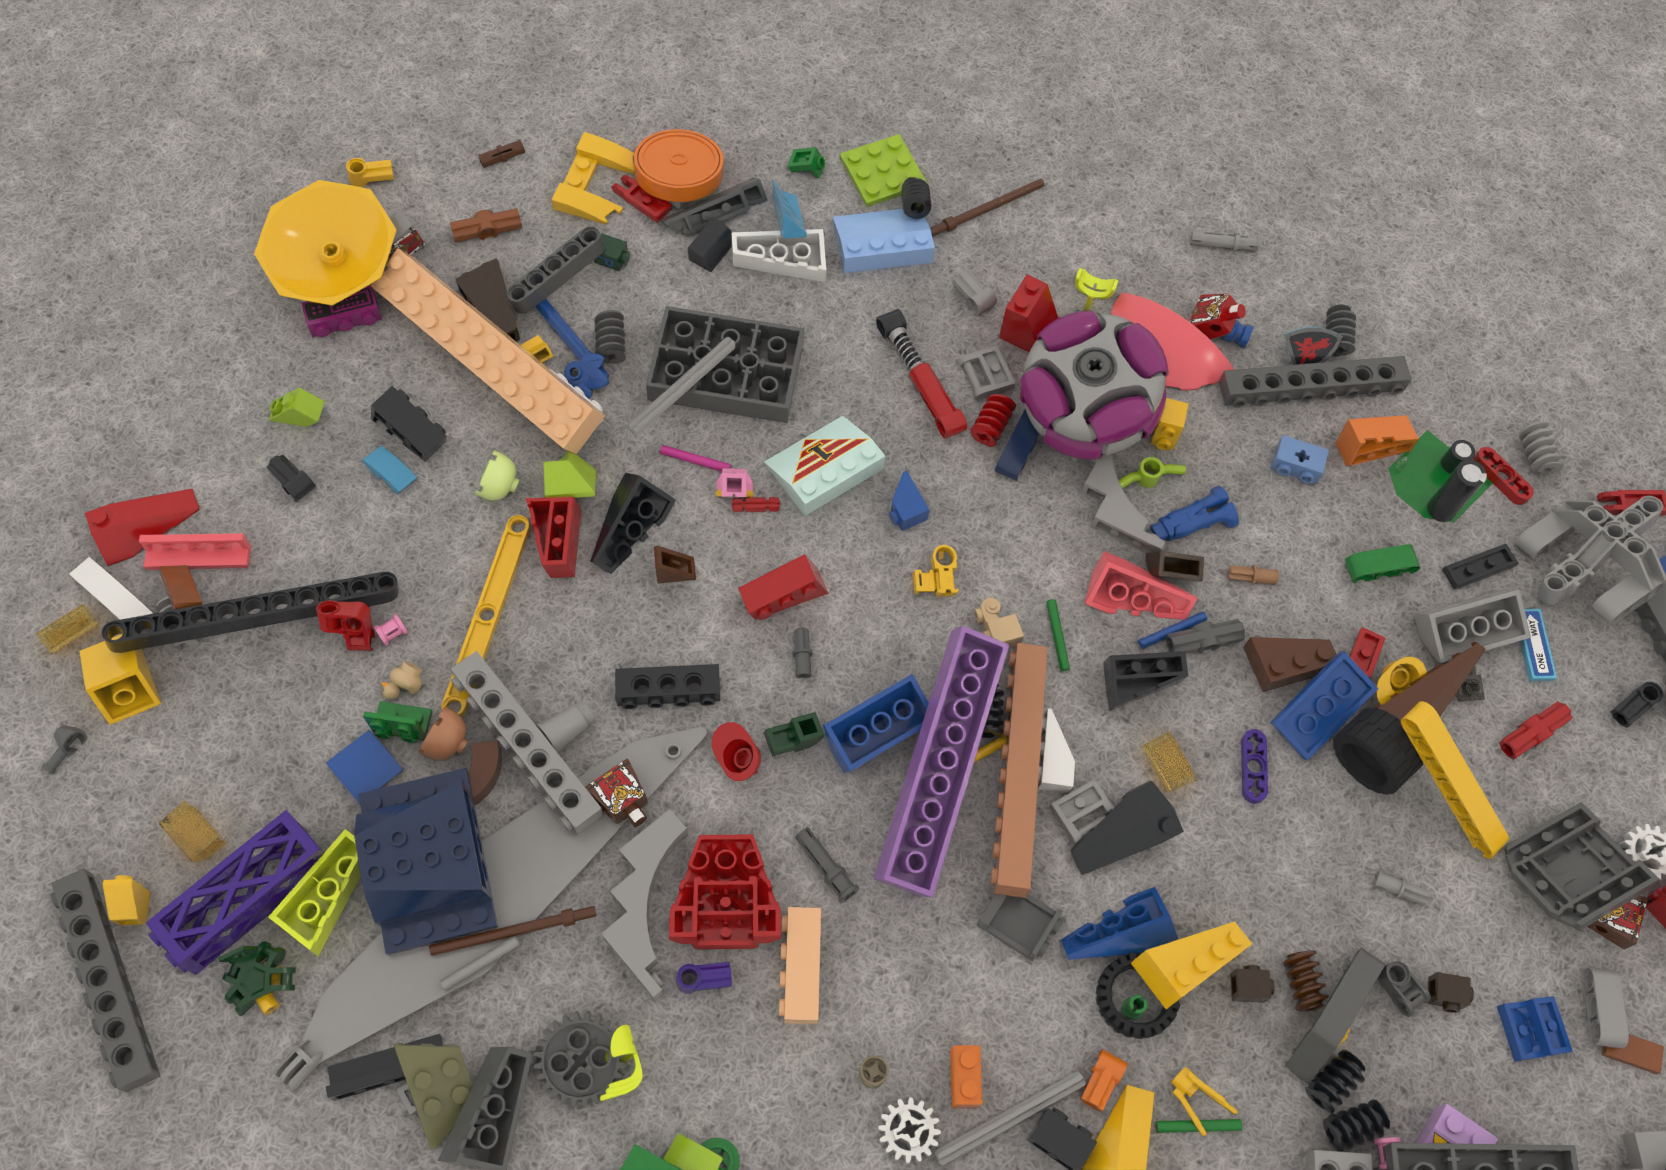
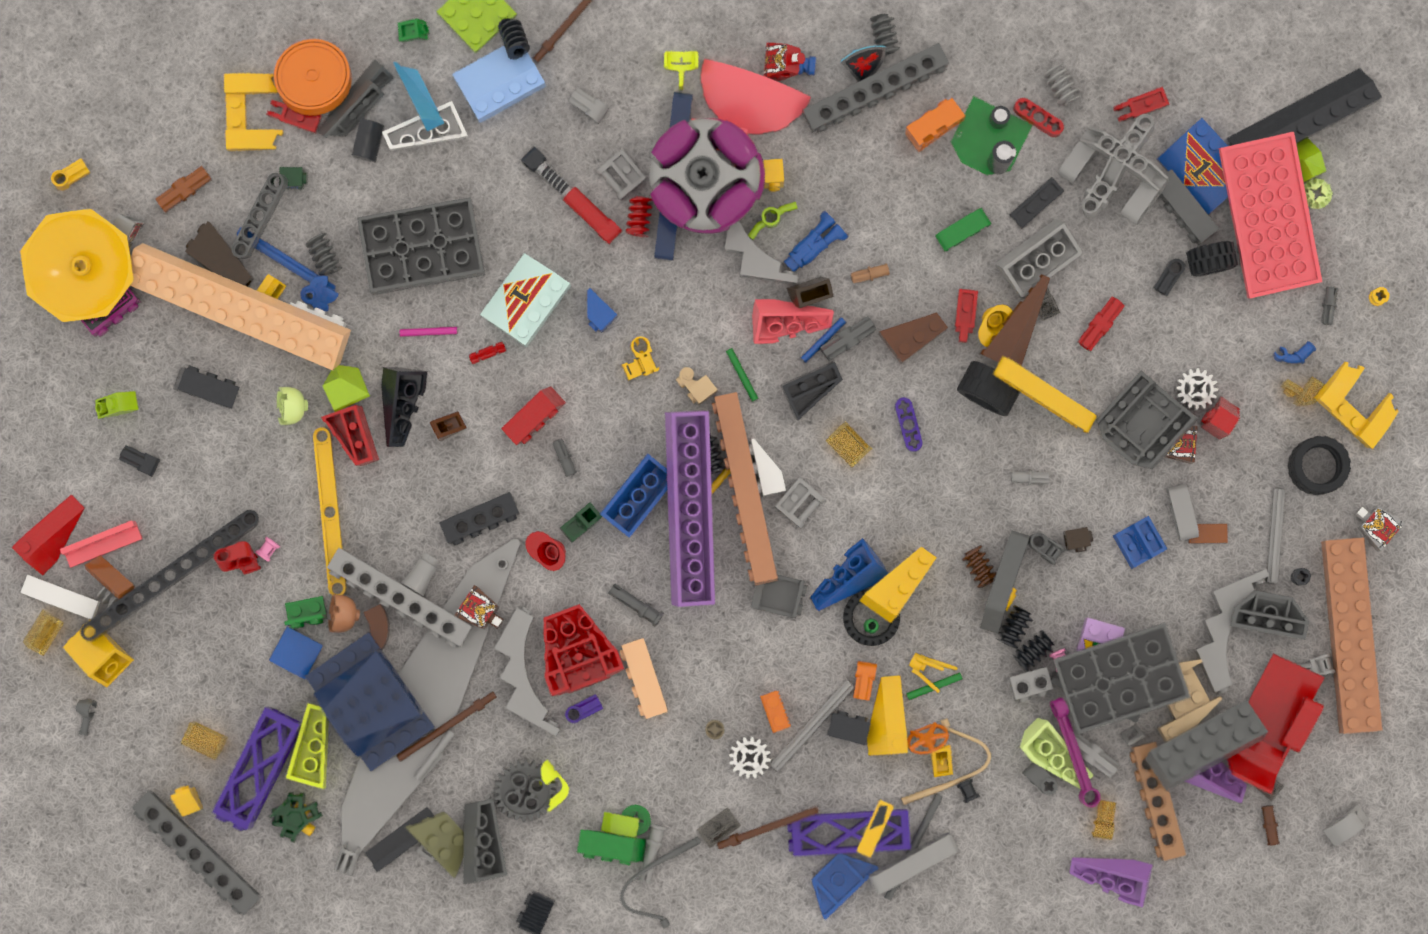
camera: 15 degrees left, 20 degrees up
(390, 469) = (208, 426): dark azure slope -> none
(405, 677) = (294, 581): tan animal -> none
(515, 149) = (165, 115): reddish brown pin -> none
(681, 386) = (398, 284): light grey axle -> none
(735, 482) = (466, 344): bright pink piece -> none
(1028, 313) = (640, 118): red slope -> none
(1133, 826) = (833, 505): black wedge -> none
(1251, 984) = (944, 582): dark brown brick -> none
(1299, 459) = (890, 158): medium blue brick -> none
(1324, 705) = (944, 364): blue plate -> none
(1537, 649) = (1091, 257): tile -> none

